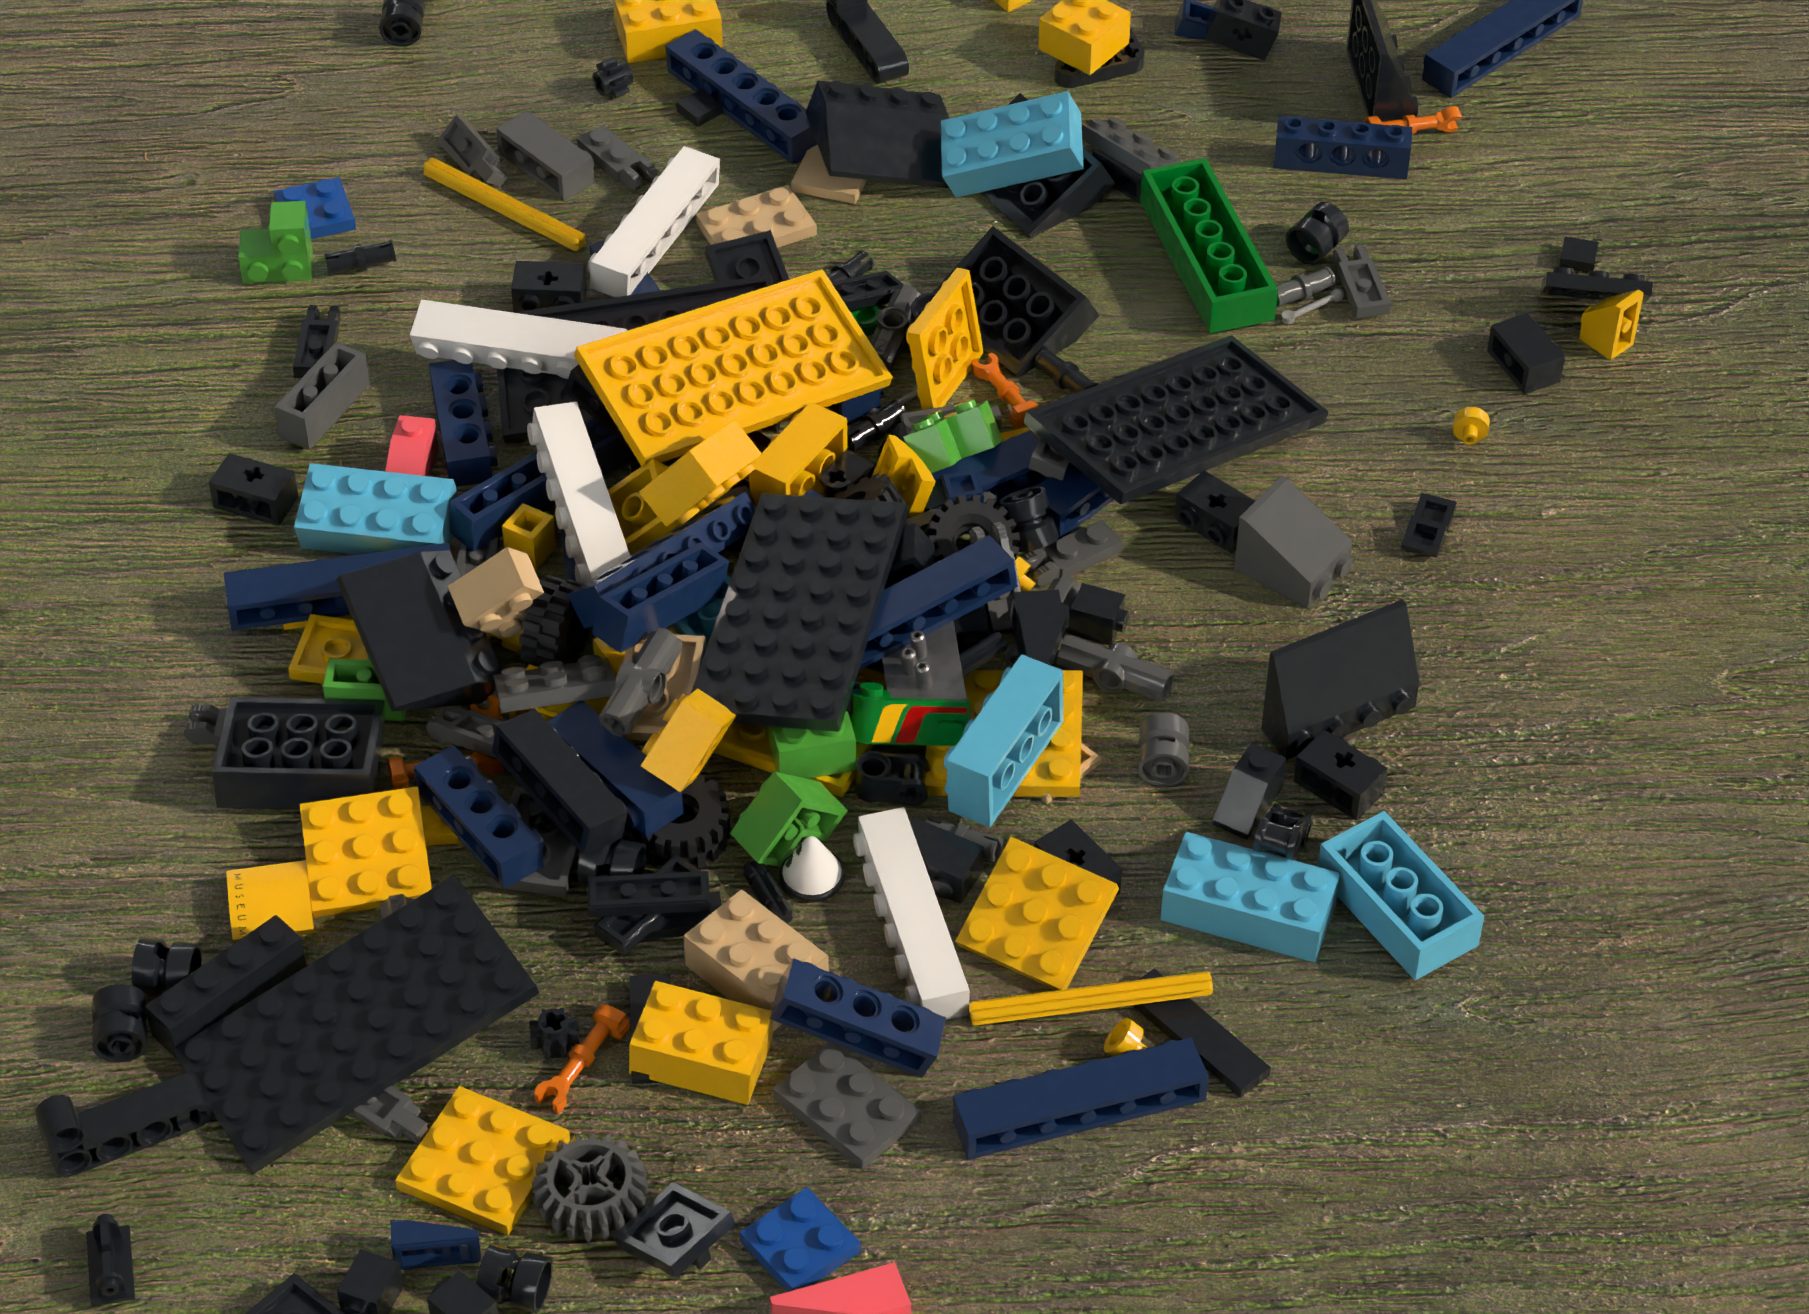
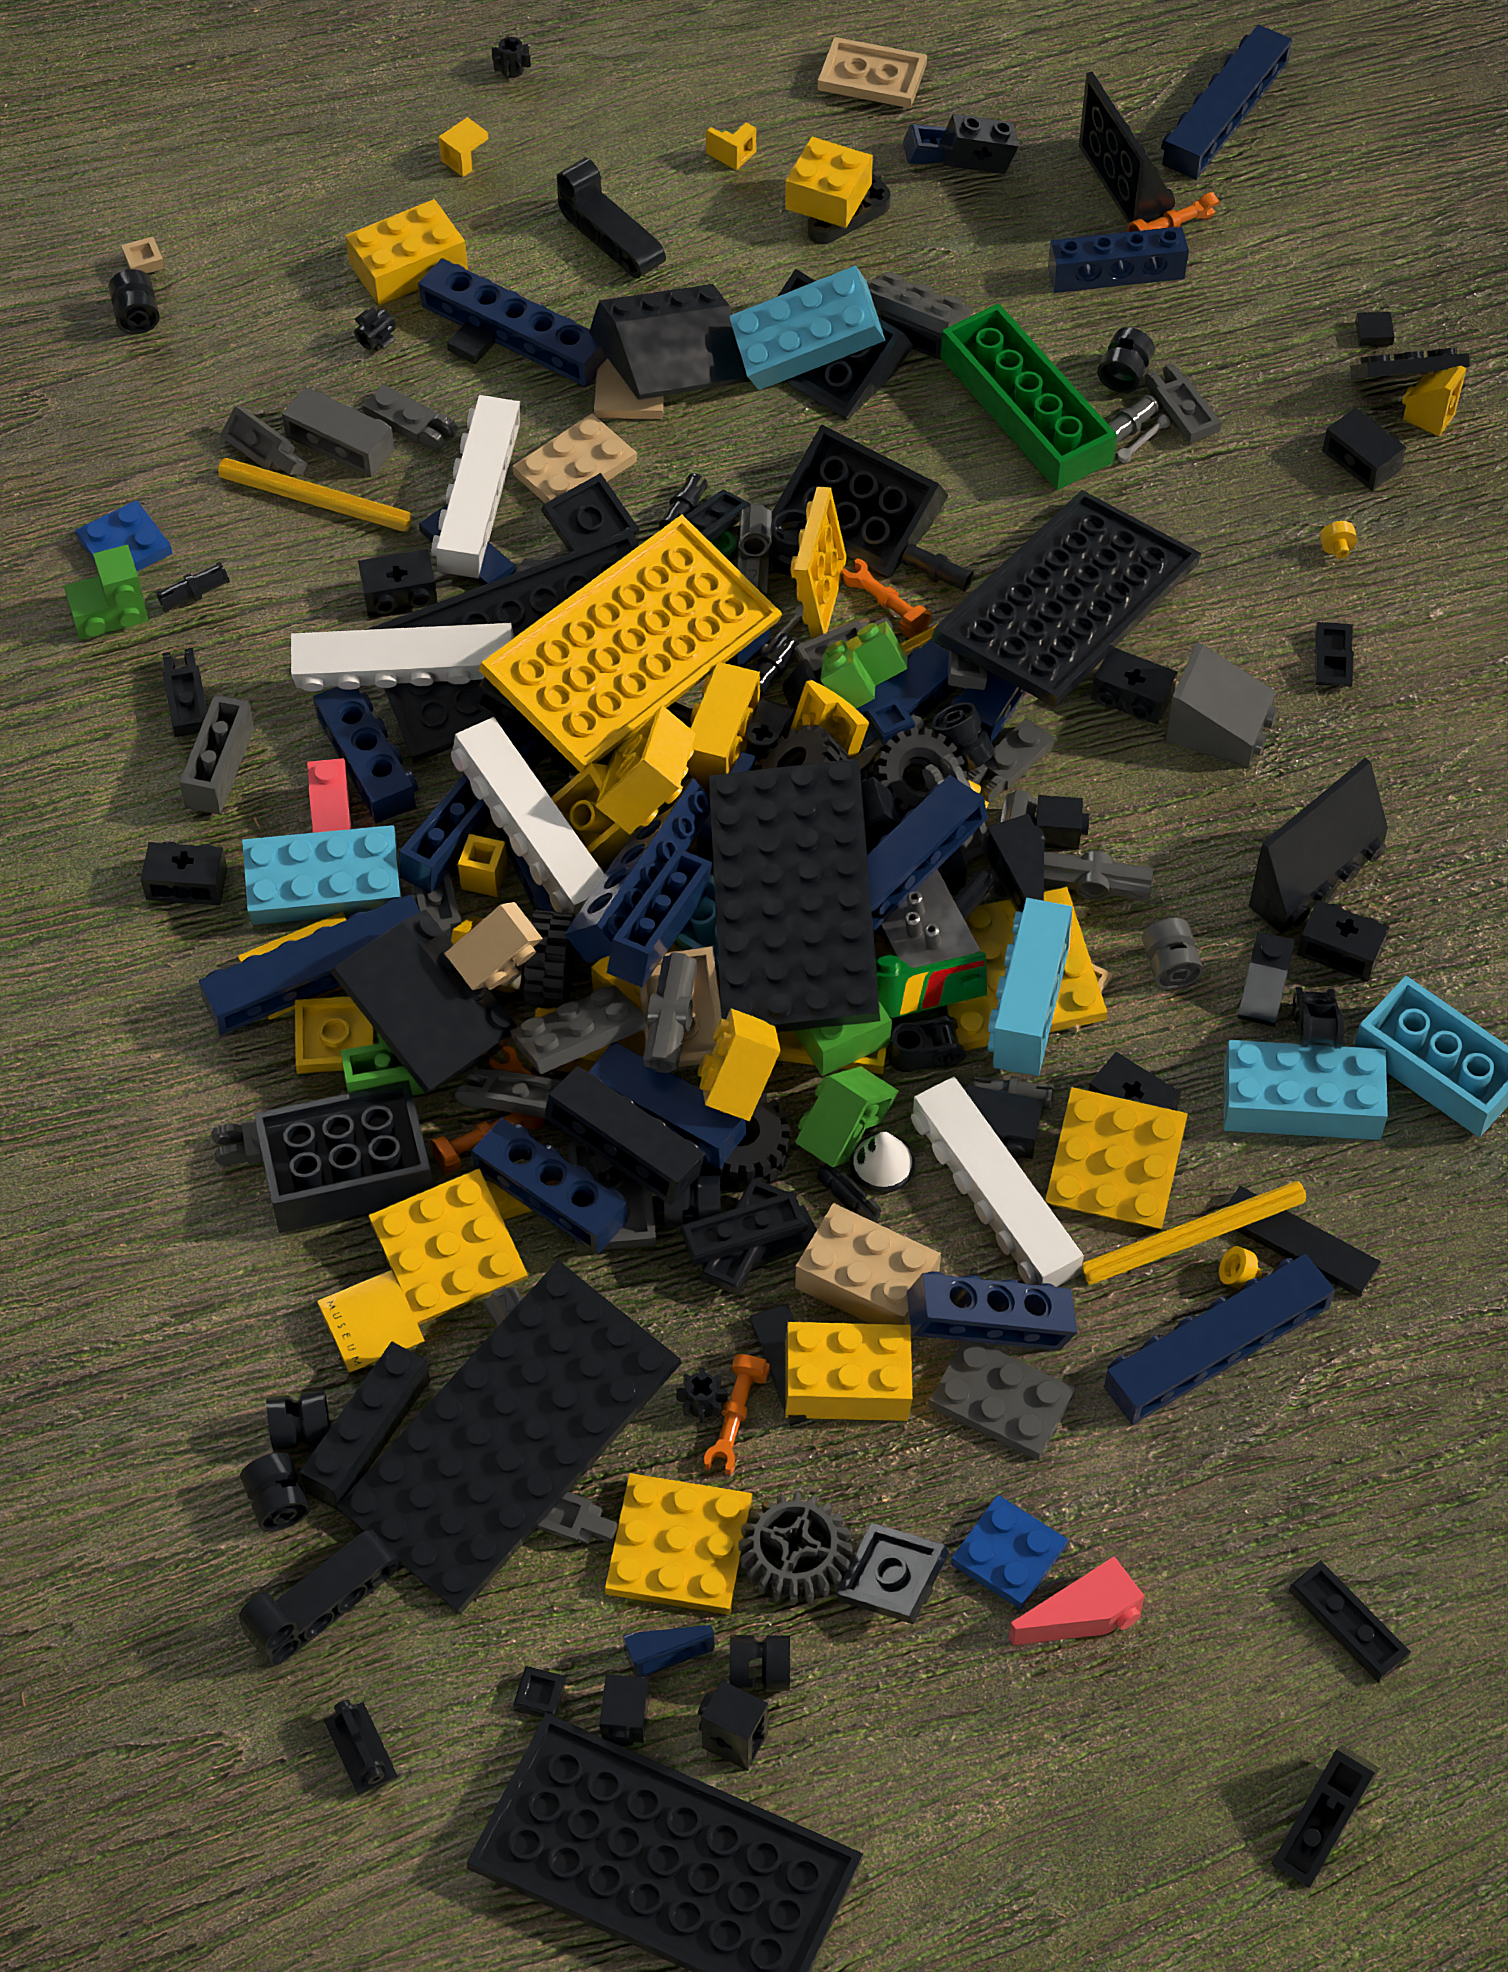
camera: 15 degrees left, 10 degrees up
(298, 1256) = (539, 1692): none -> black tile

